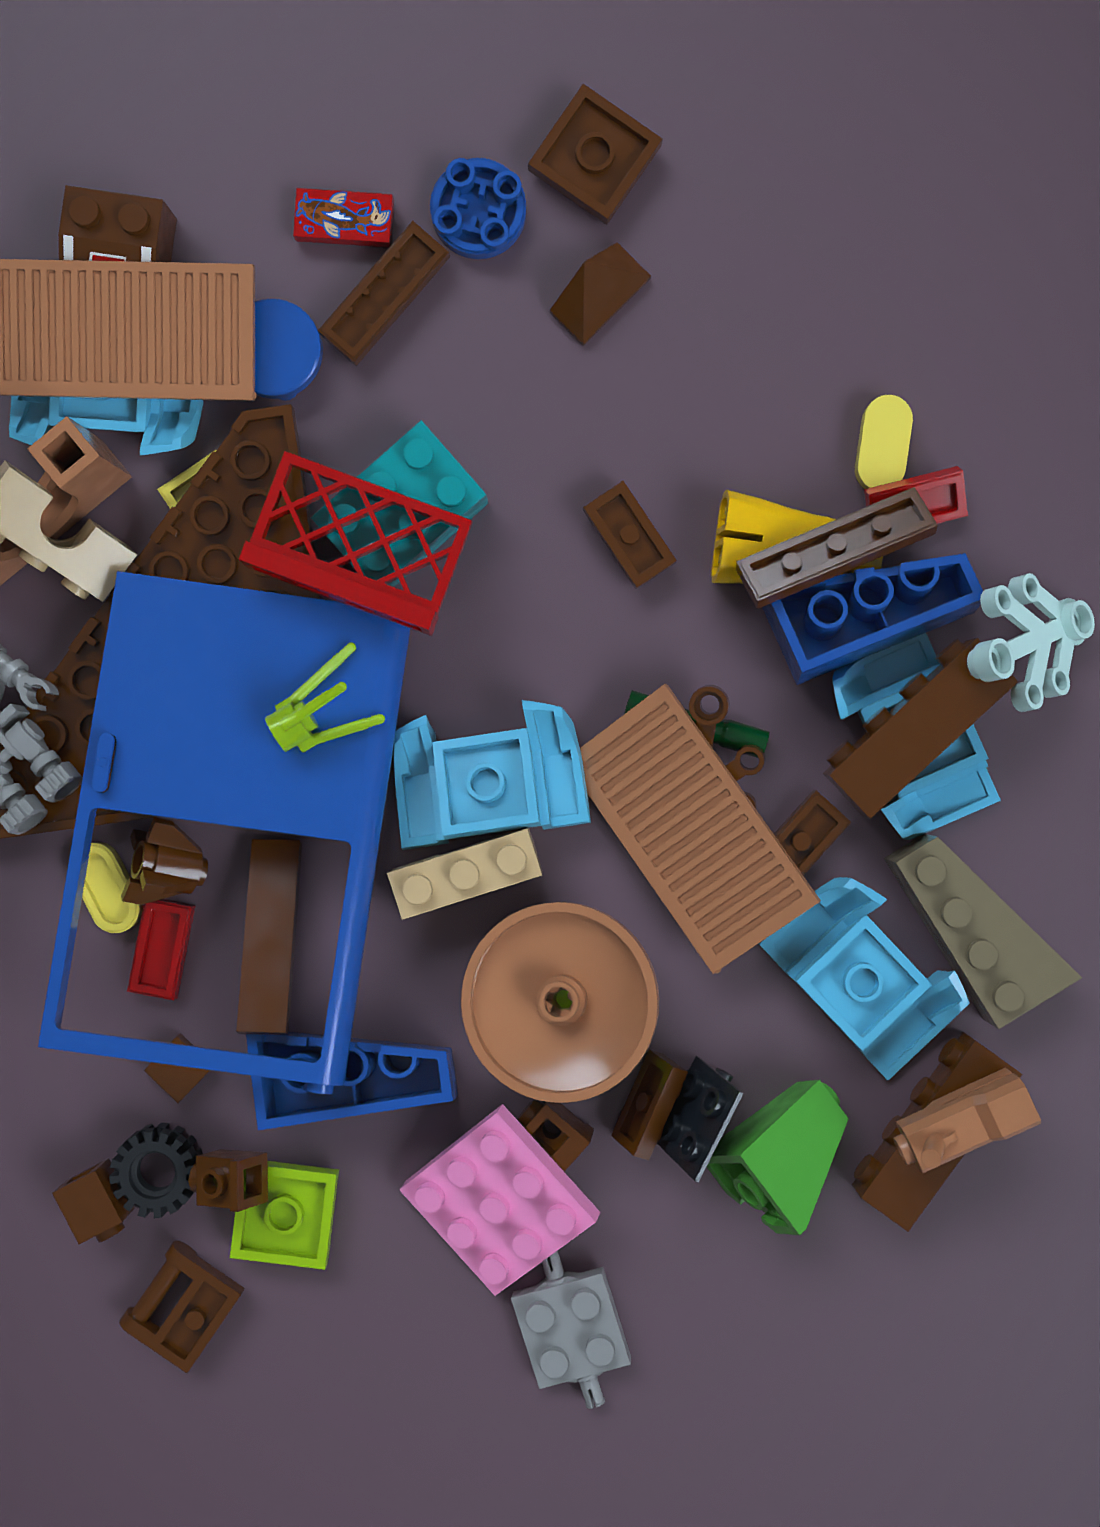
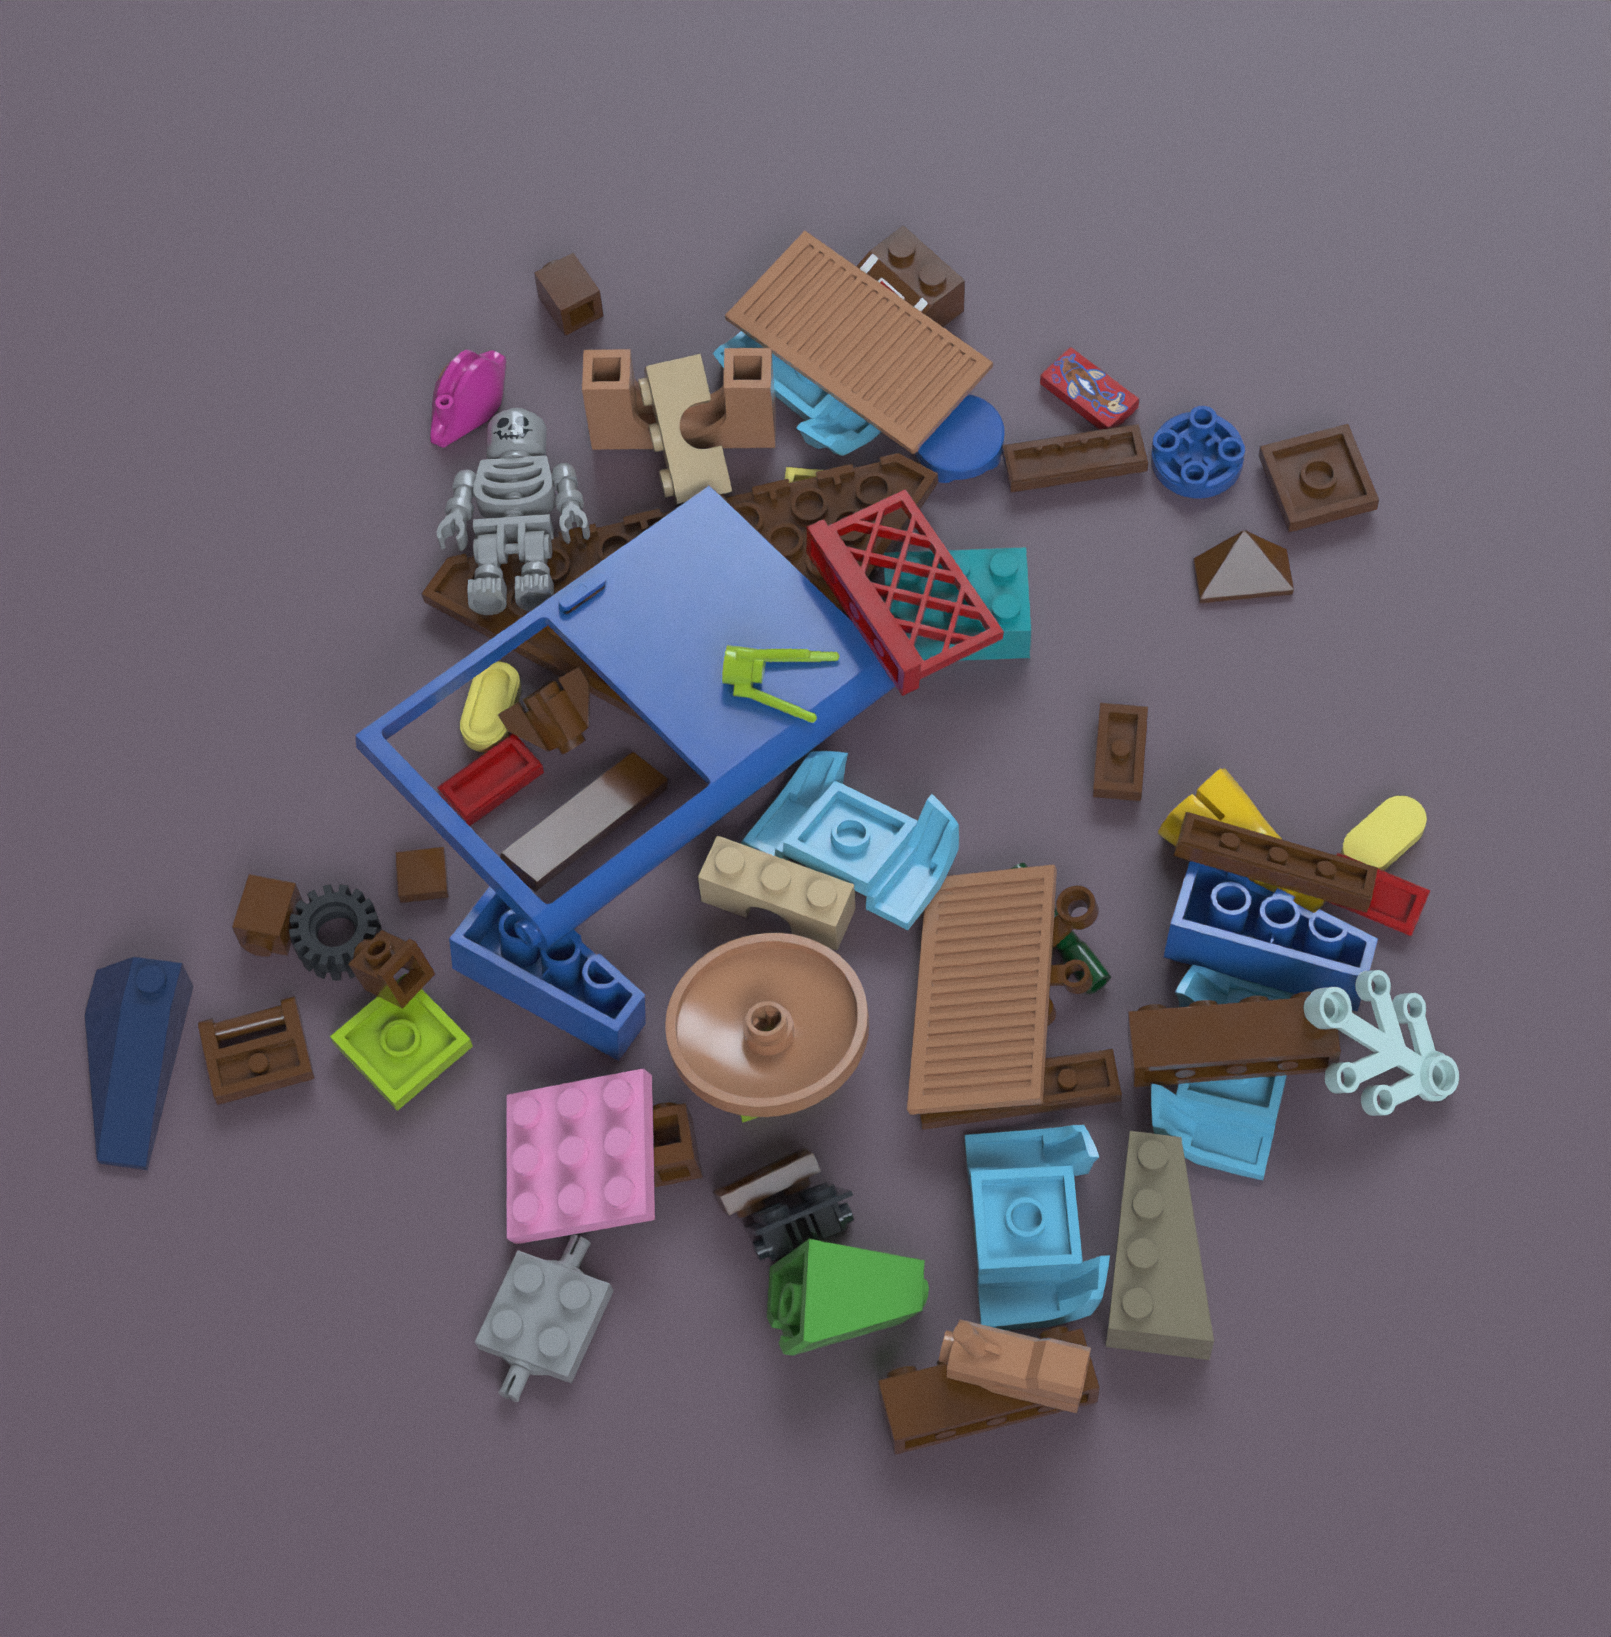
camera: 40 degrees right, 25 degrees down
(89, 1376) = (132, 1046): none -> dark blue wedge

